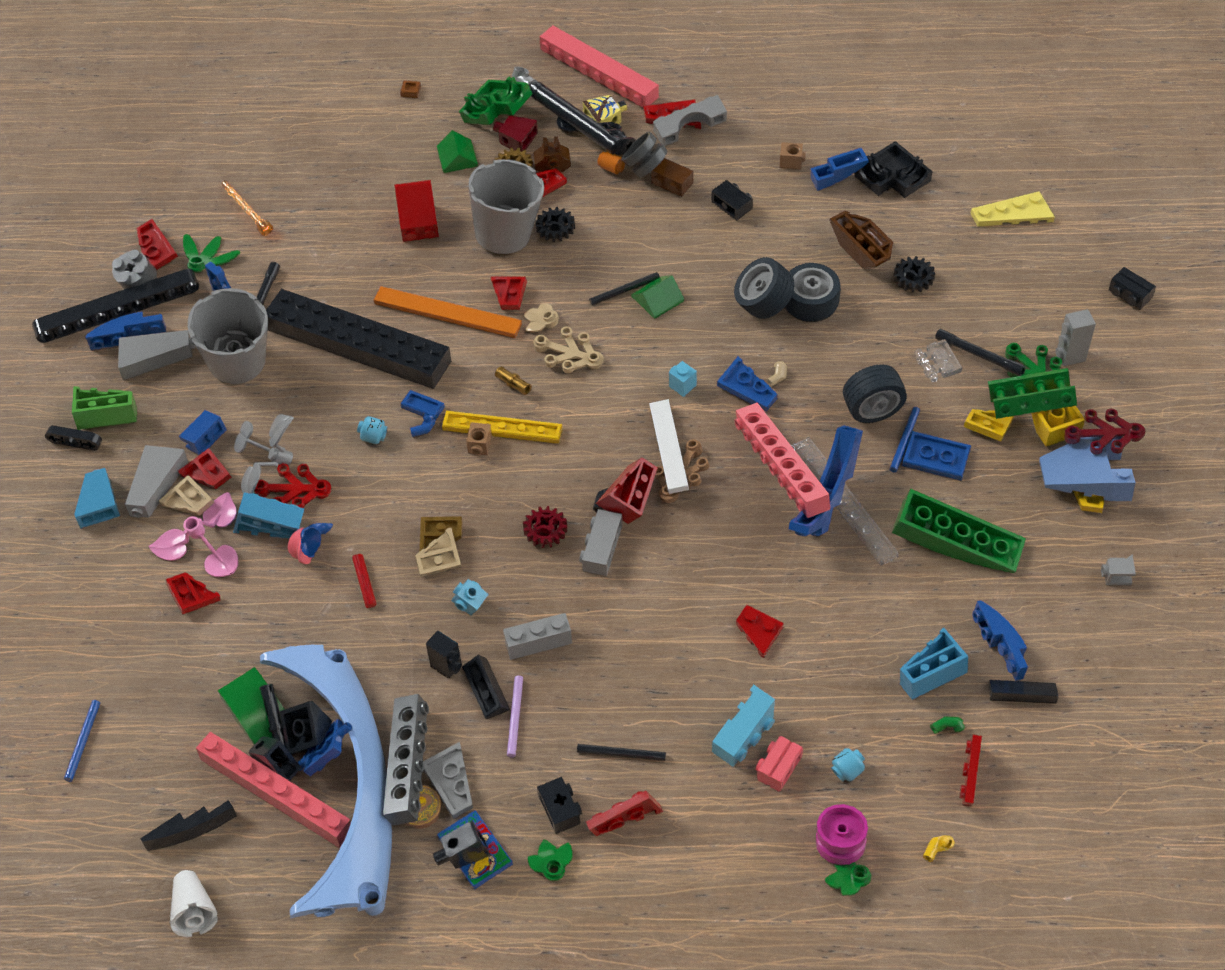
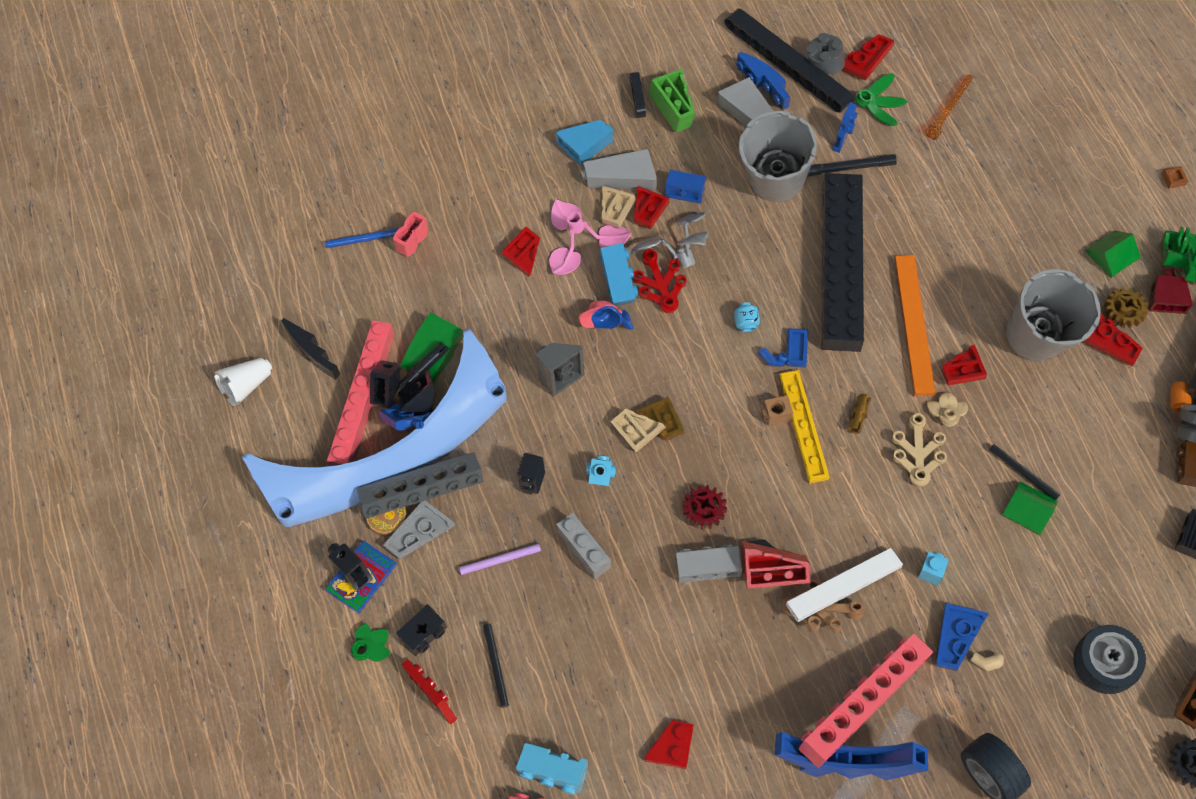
camera: 70 degrees right, 10 degrees up
(111, 686) = (412, 233): none -> coral brick
(343, 592) = (559, 366): none -> dark grey slope
(364, 580) = (589, 379): red axle -> none
(416, 210) = (1015, 246): red slope -> none
(485, 687) = (521, 523): black slope -> none
(552, 156) = (1153, 338): reddish brown hinge -> none
(555, 224) = (1069, 376): black gear -> none
(764, 288) = (1081, 607): black wheel -> none

